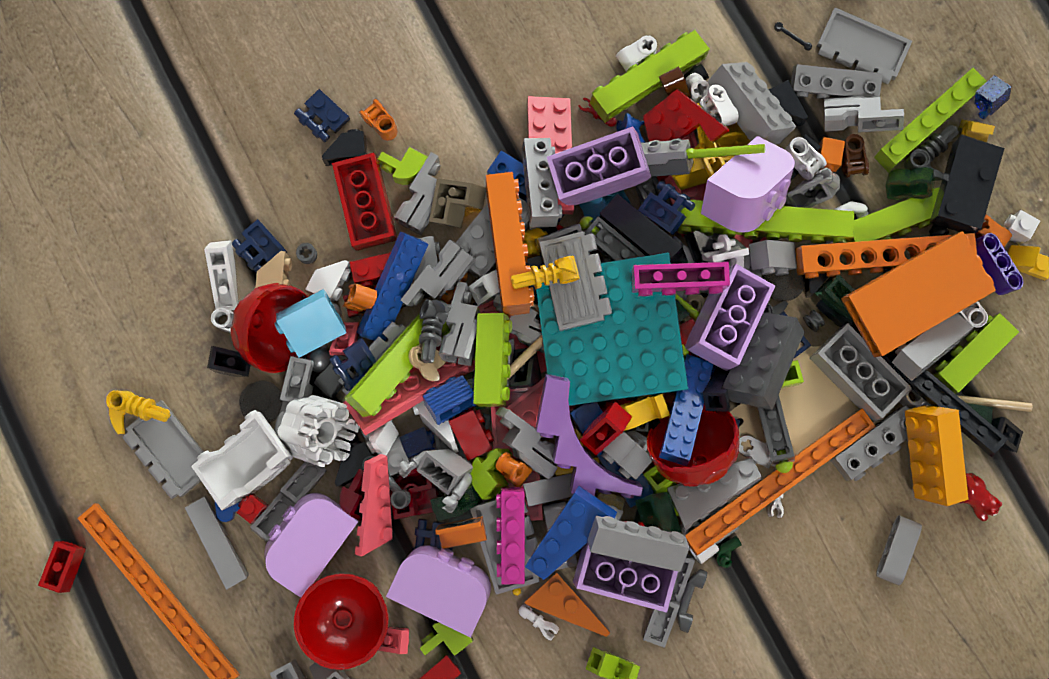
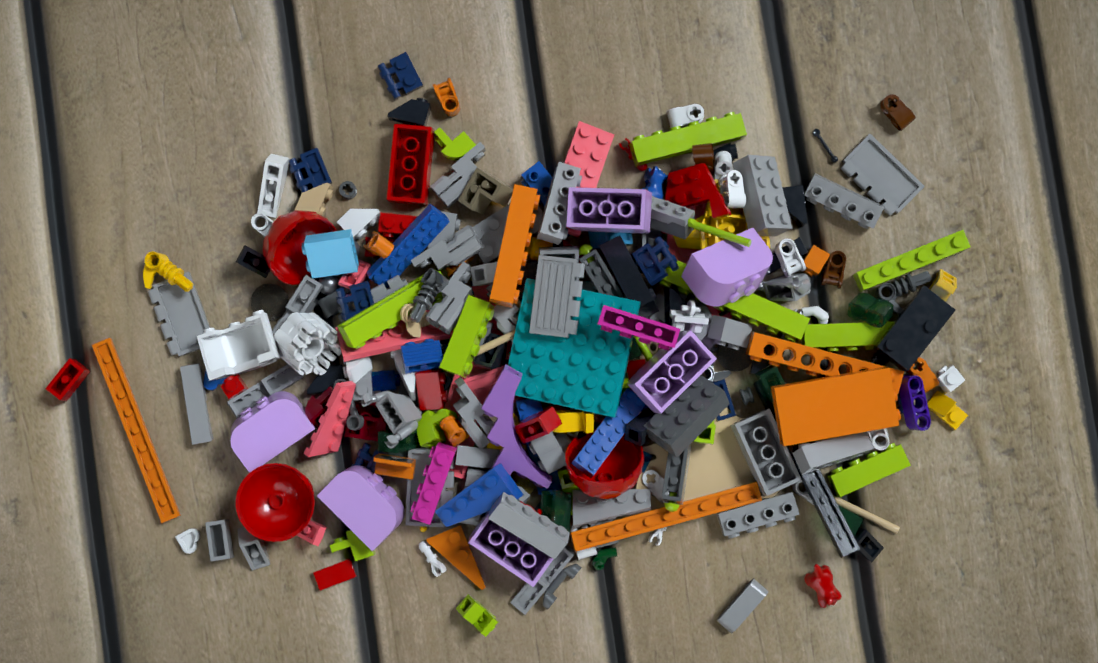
camera: 20 degrees right, 5 degrees up
(564, 270) = (549, 286): yellow piece -> none
(861, 112) = (852, 233): light grey plate -> none
(936, 454) = (798, 540): light orange brick -> none
(992, 96) = (969, 259): clear blue brick -> none

